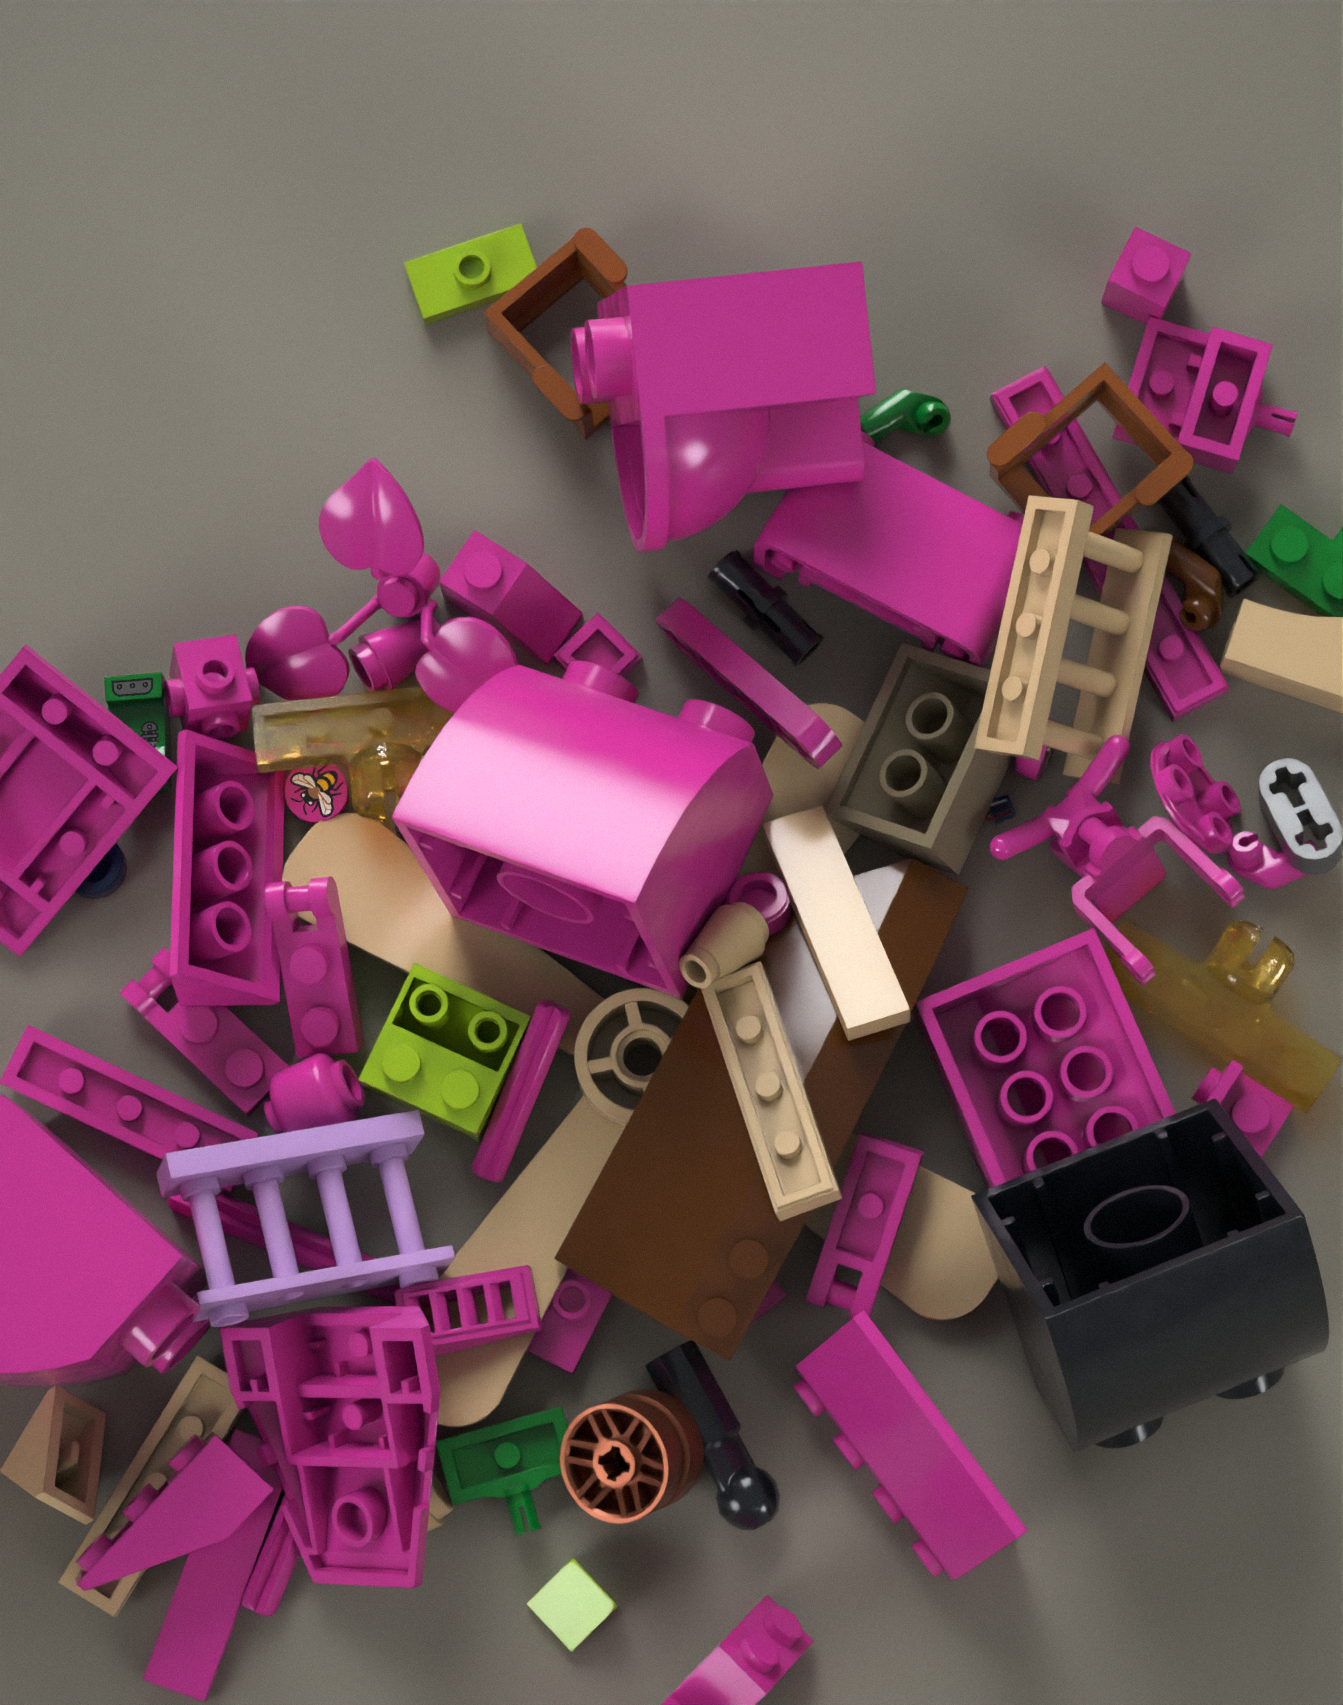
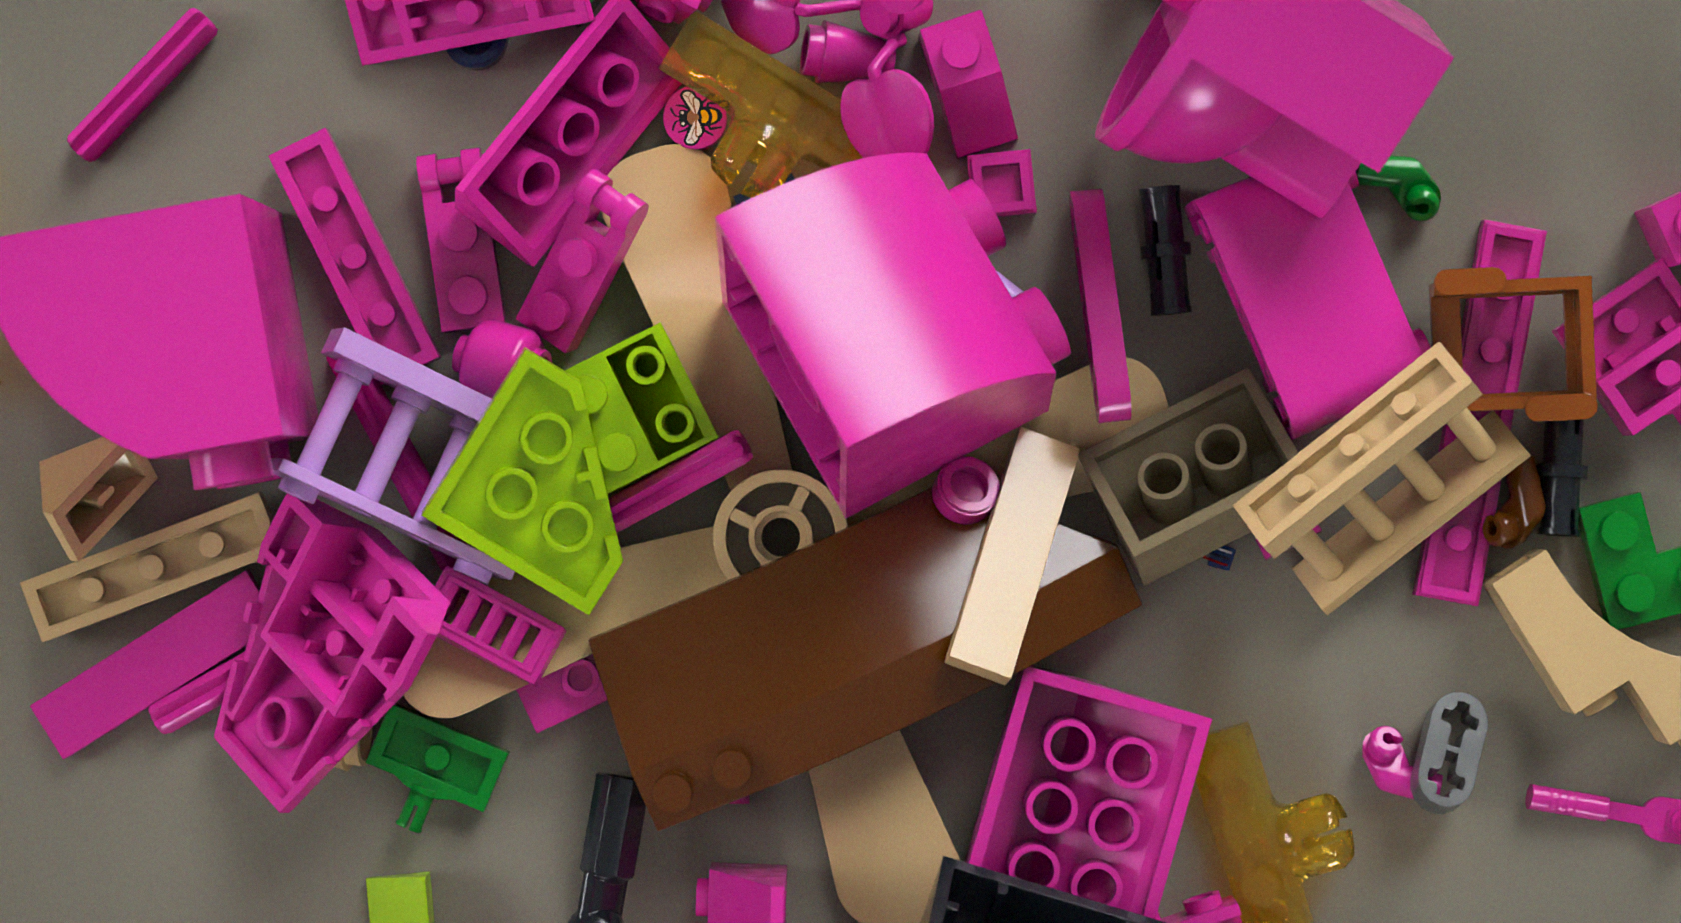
camera: 40 degrees right, 10 degrees up
(191, 1510) = (155, 612): dark pink slope -> none
(415, 1165) = (534, 486): none -> lime plate
(631, 1455) = (529, 837): copper wheel -> none
(726, 943) = (911, 507): tan cone -> none
(771, 1092) = (852, 653): tan tile -> none
(865, 1223) = (851, 802): dark pink plate -> none
(1113, 861) = (1273, 666): dark pink piece -> none
(1192, 796) = (1377, 671): dark pink dish -> none

